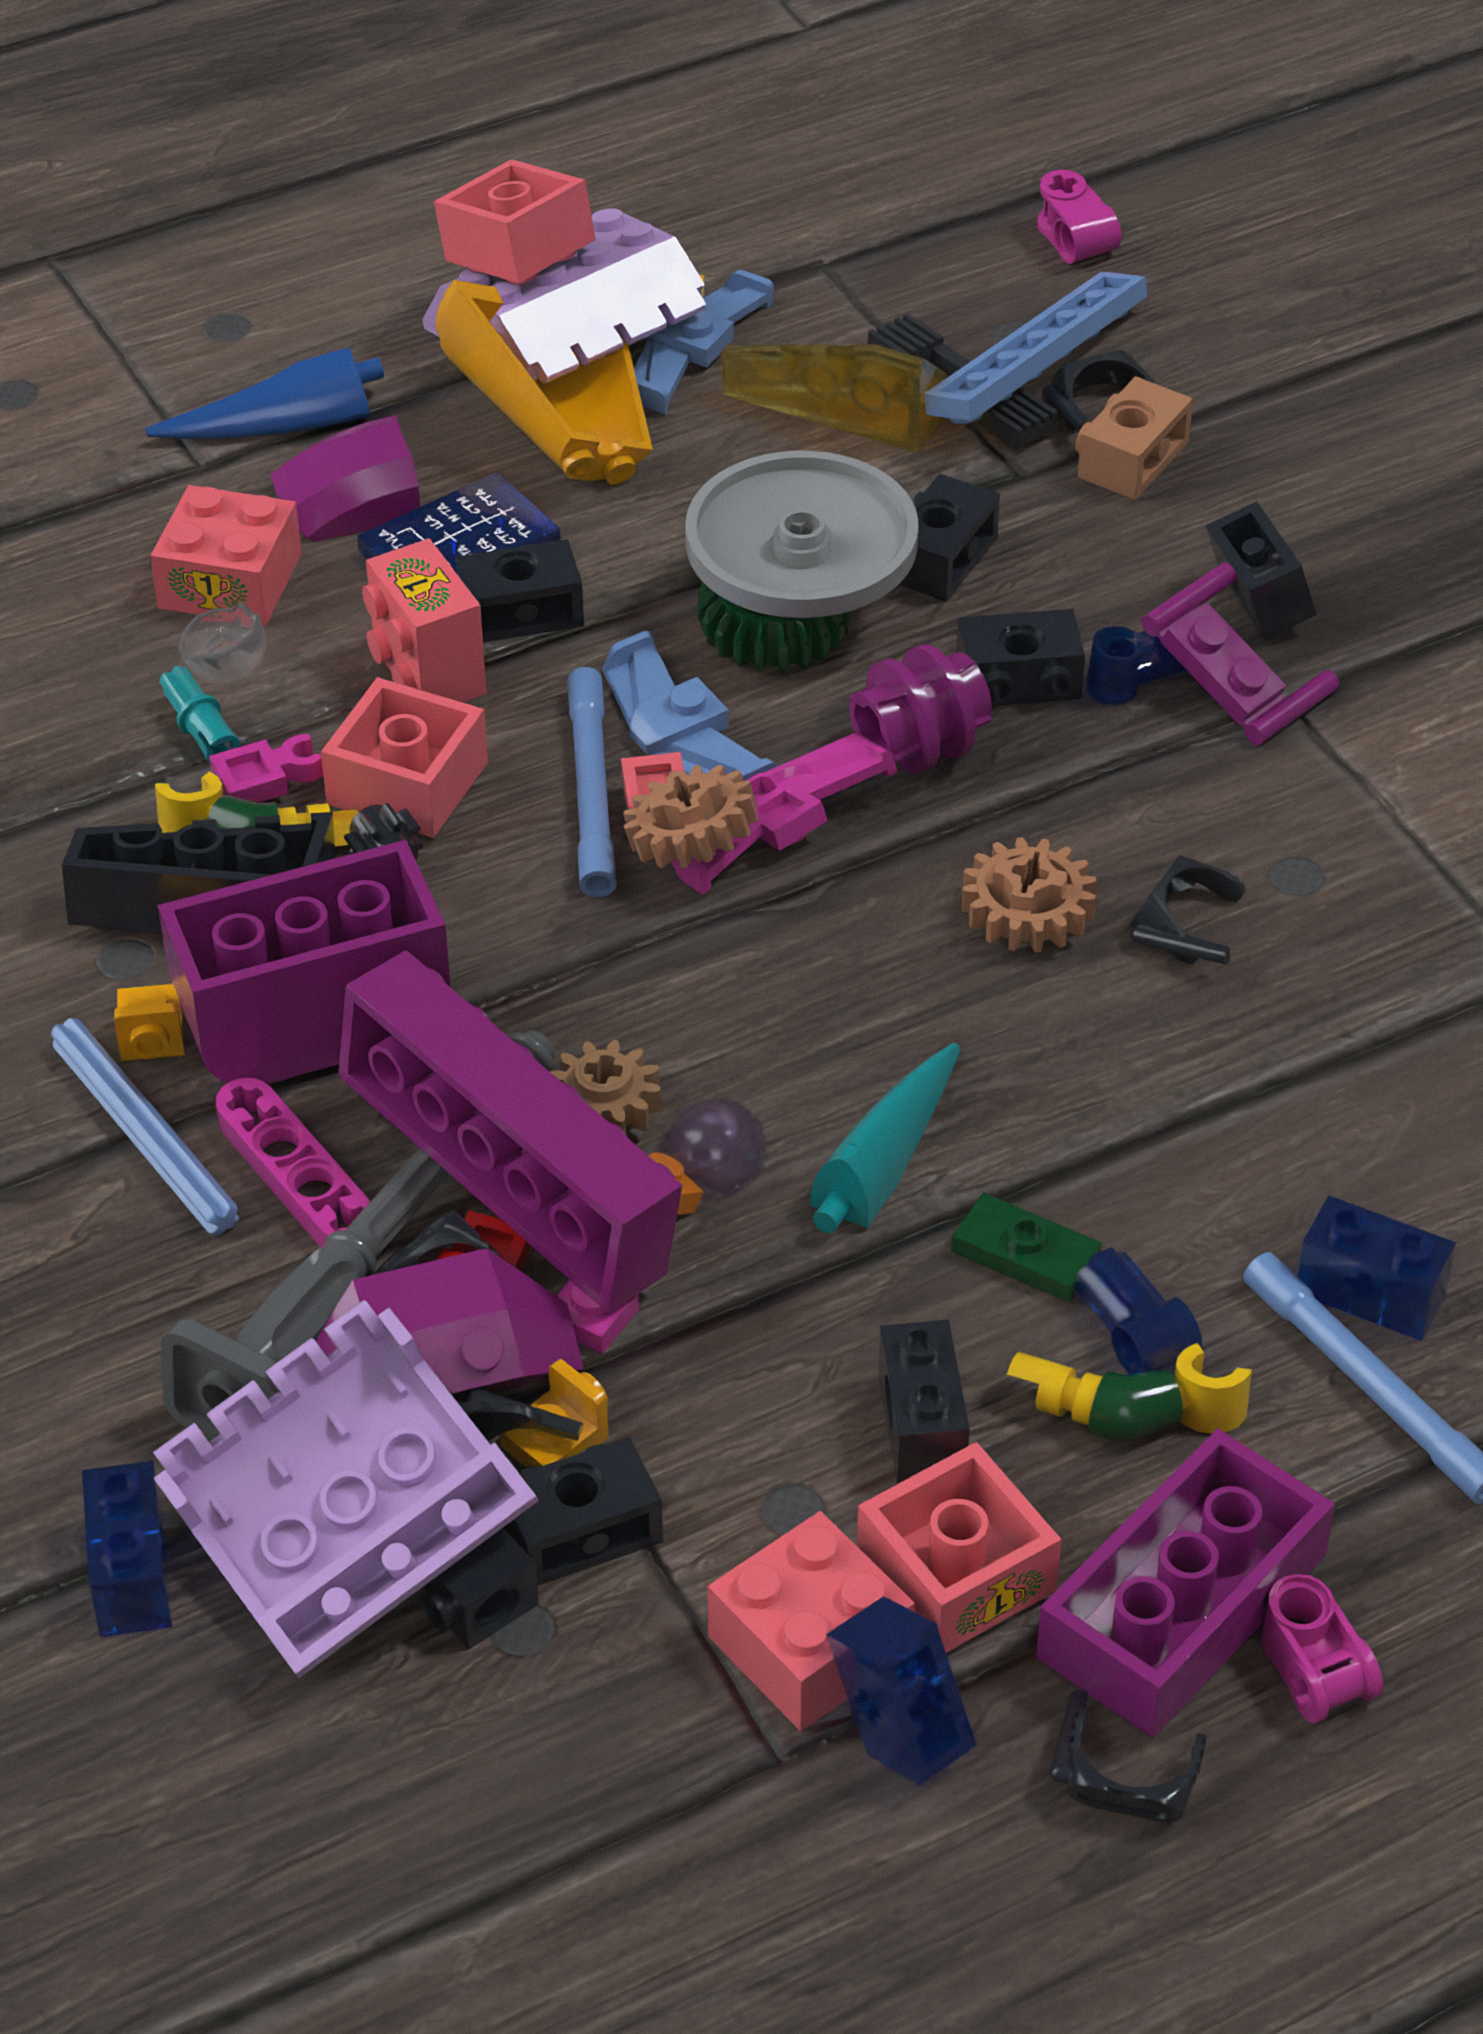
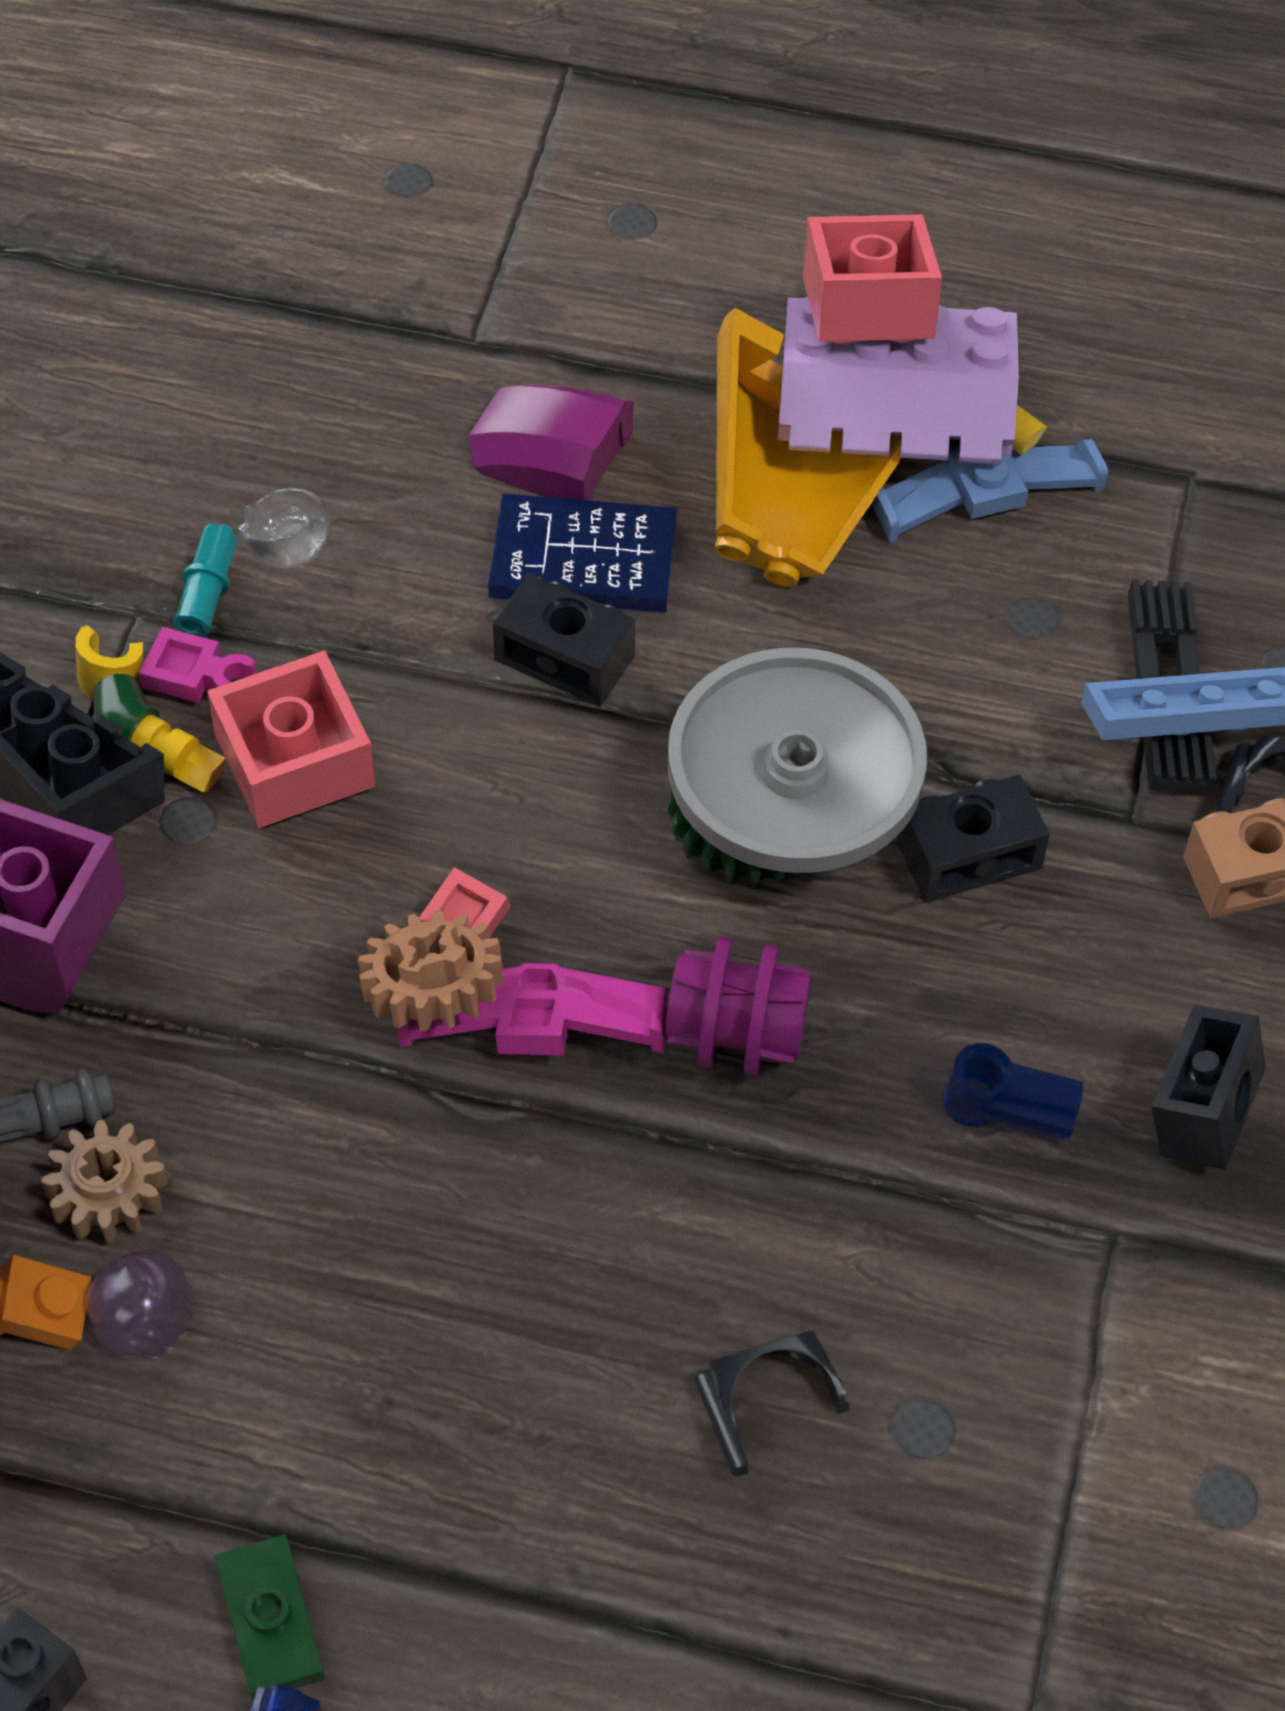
camera: 40 degrees right, 10 degrees up
(226, 552) = (377, 443): coral brick -> none
(299, 398) = (596, 329): blue piece -> none
(381, 826) = (199, 806): black gear -> none
(425, 622) = (429, 624): coral brick -> none
(595, 847) = (498, 796): medium blue piece -> none
(670, 716) = (563, 857): medium blue plate -> none
(839, 386) = (1049, 625): clear yellow wedge -> none
(879, 1148) = (257, 1416): teal piece -> none
(1026, 655) = (888, 984): black brick -> none
(1028, 894) = (642, 1273): nougat gear -> none
(1227, 663) = (1071, 1165): magenta plate -> none

